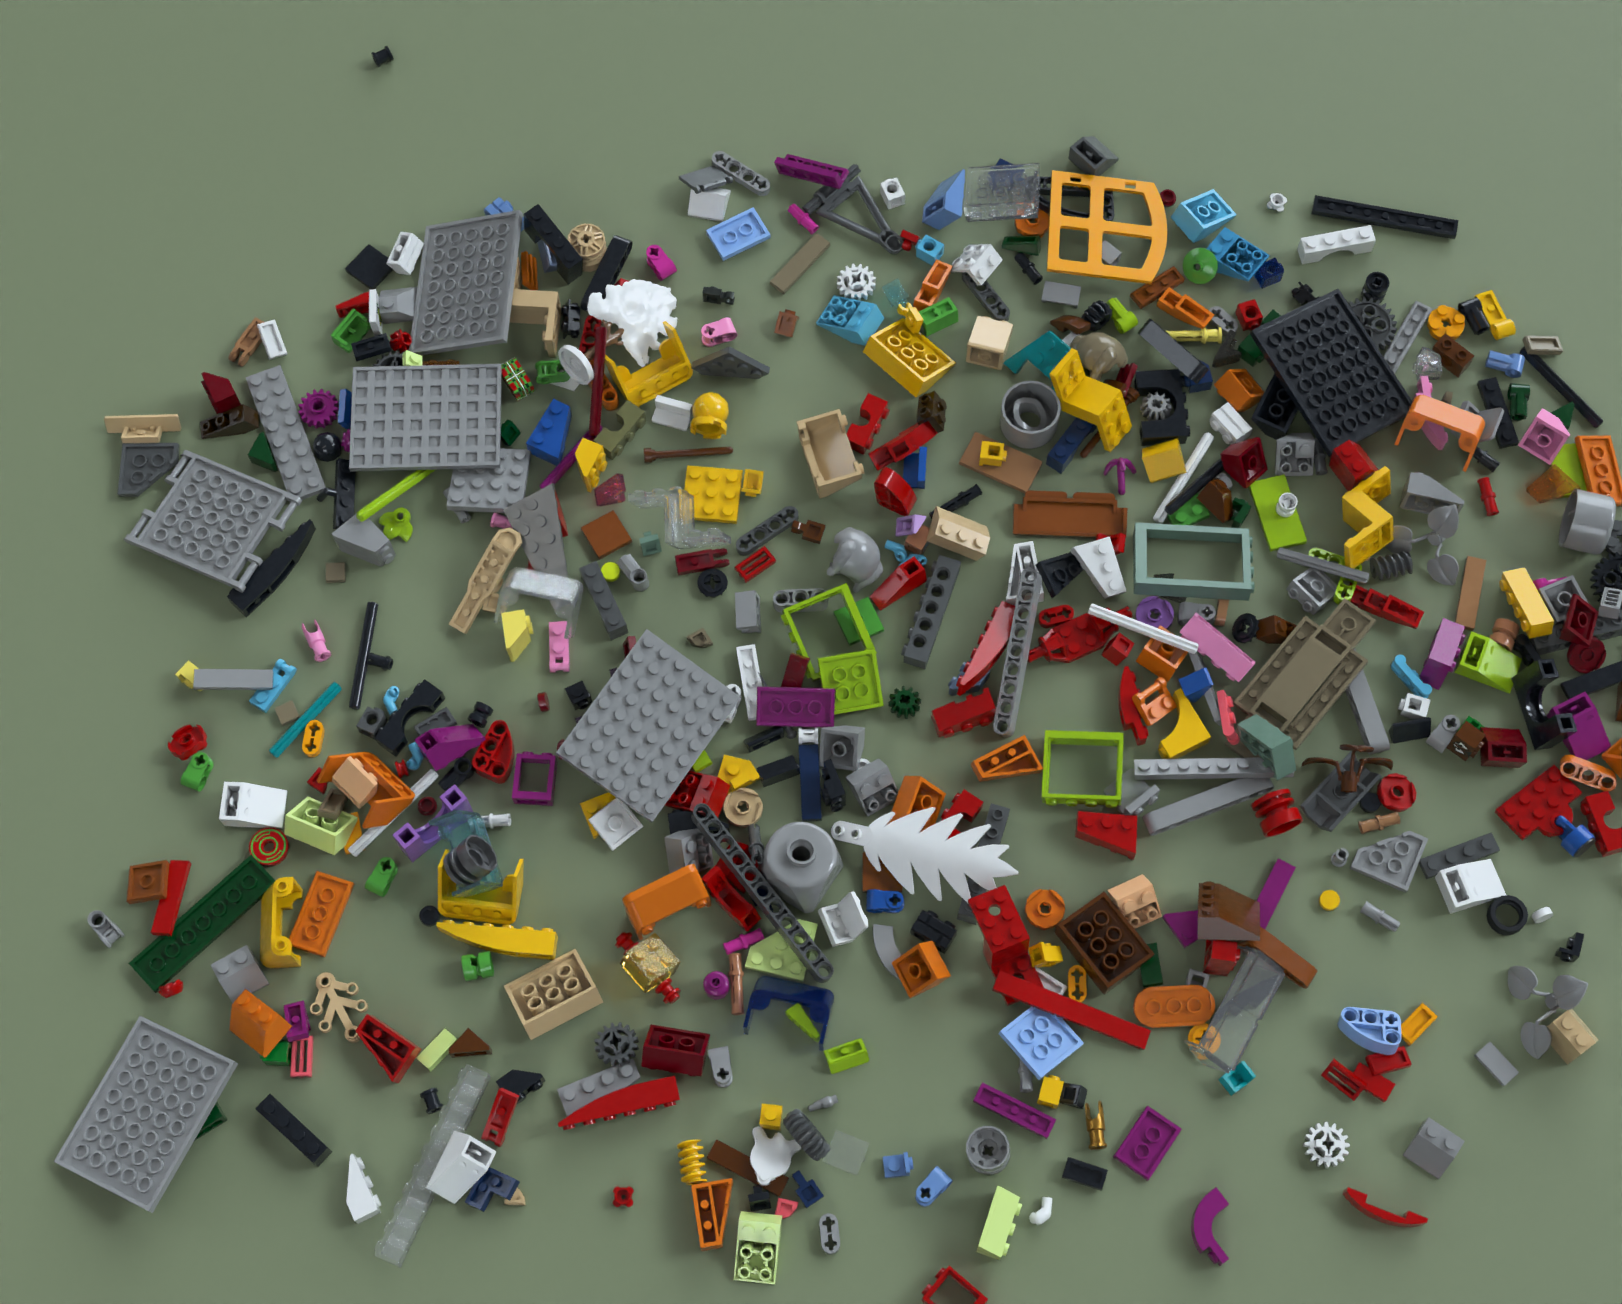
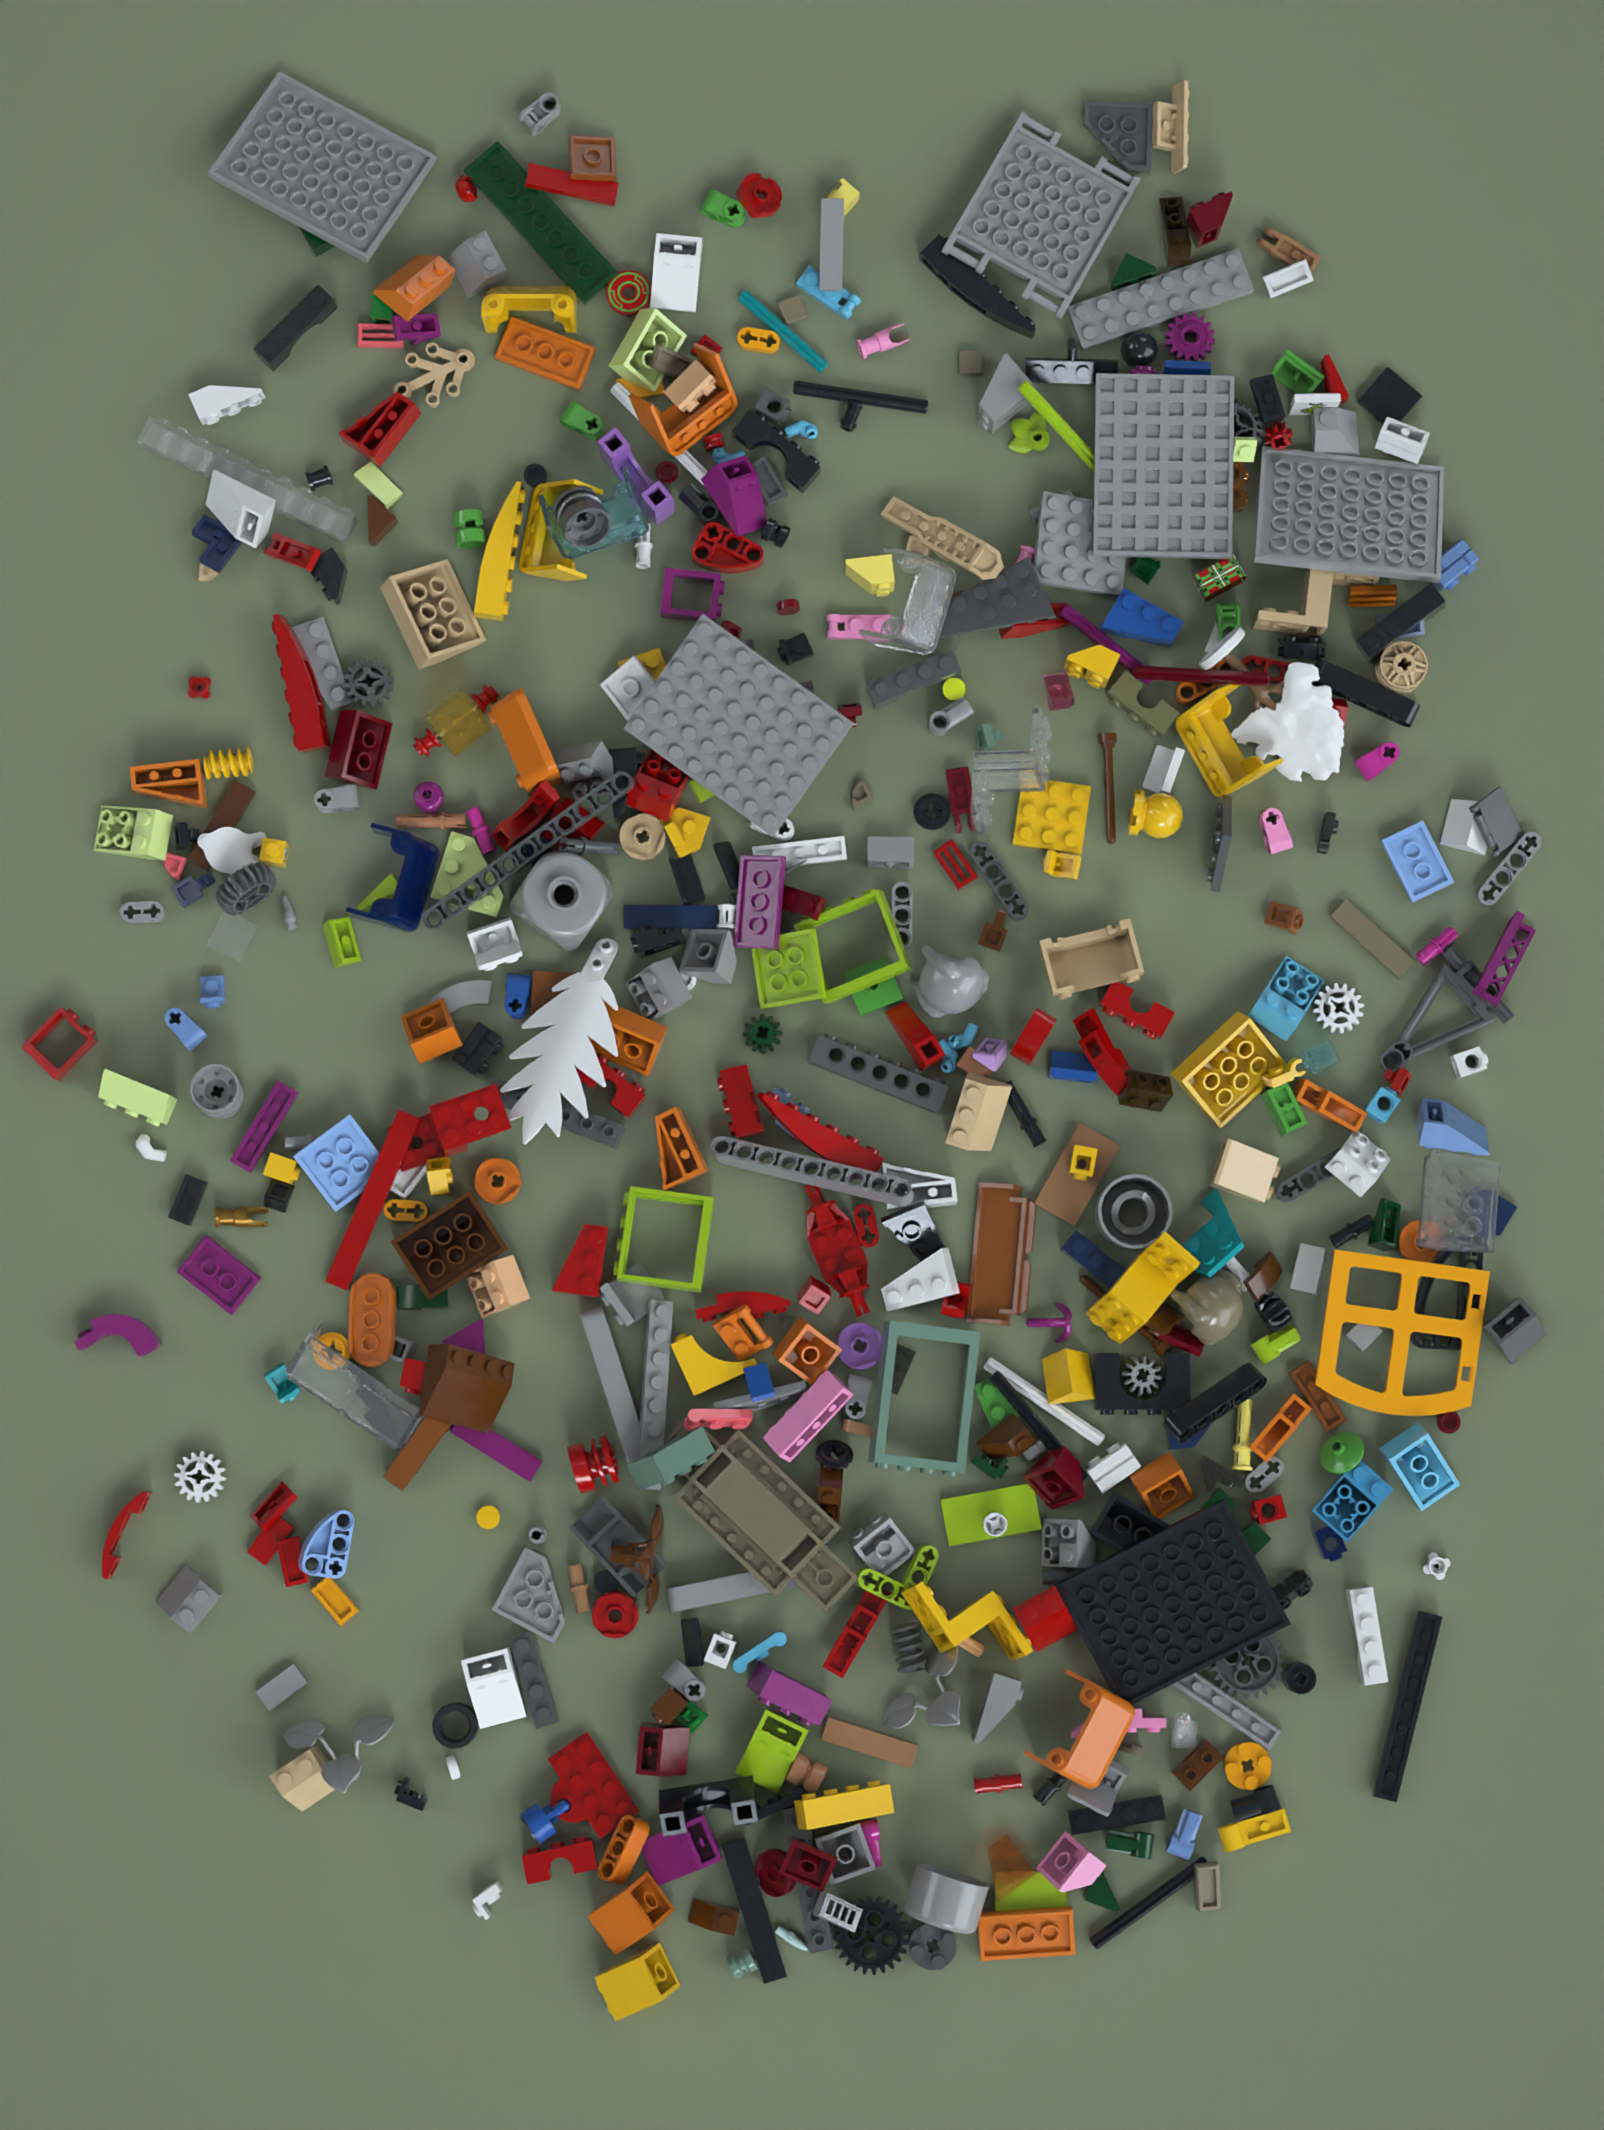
camera: 90 degrees right, 15 degrees up
(606, 534) = (1003, 685): dark orange tile -> none
(1143, 628) = (832, 1325): white axle -> none
(1323, 565) = (910, 1559): light grey axle -> none
(1380, 917) = (463, 1574): light grey axle -> none

